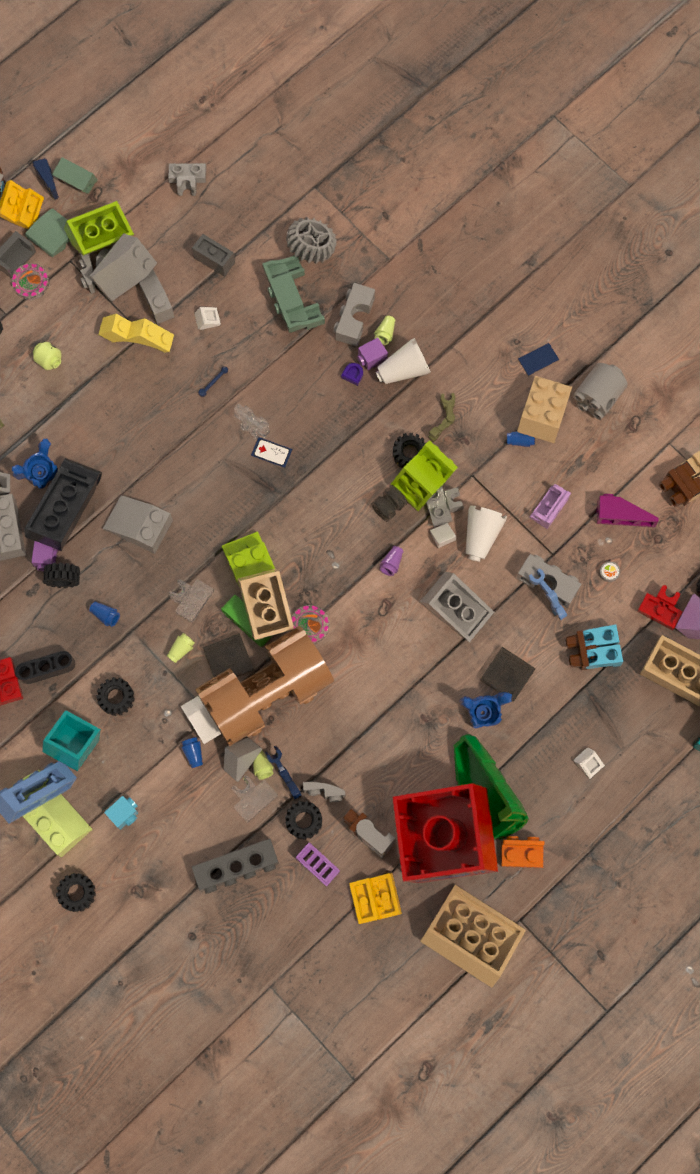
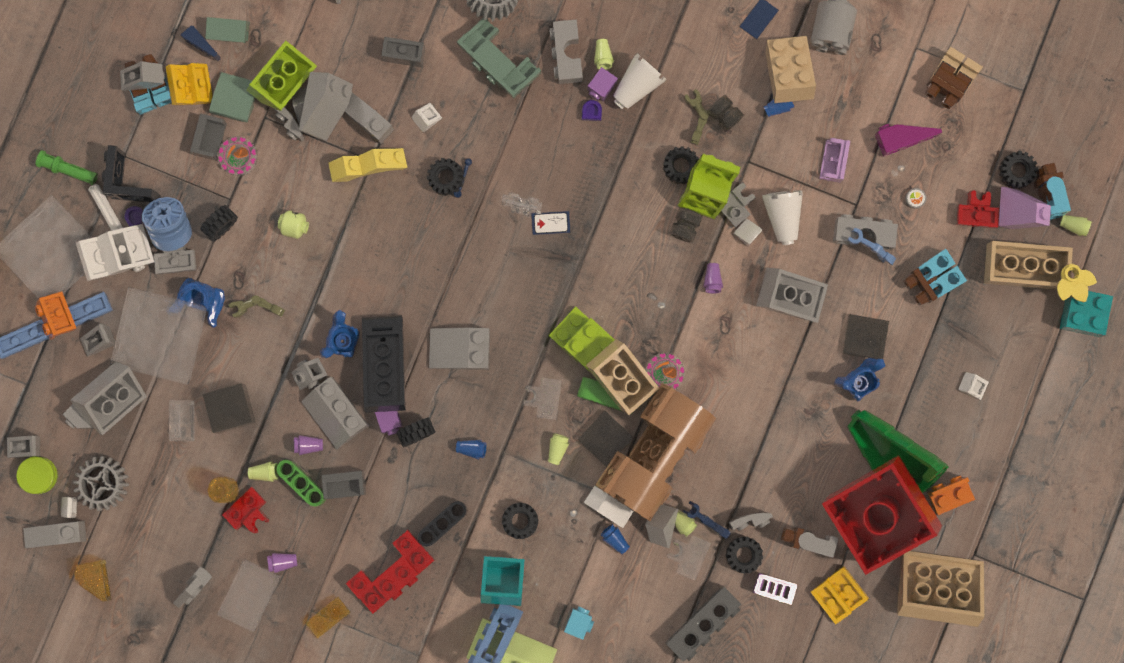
camera: 25 degrees left, 10 degrees up
(191, 365) = (437, 168): none -> black tyre
(469, 421) = (725, 113): none -> clear smoke wheel

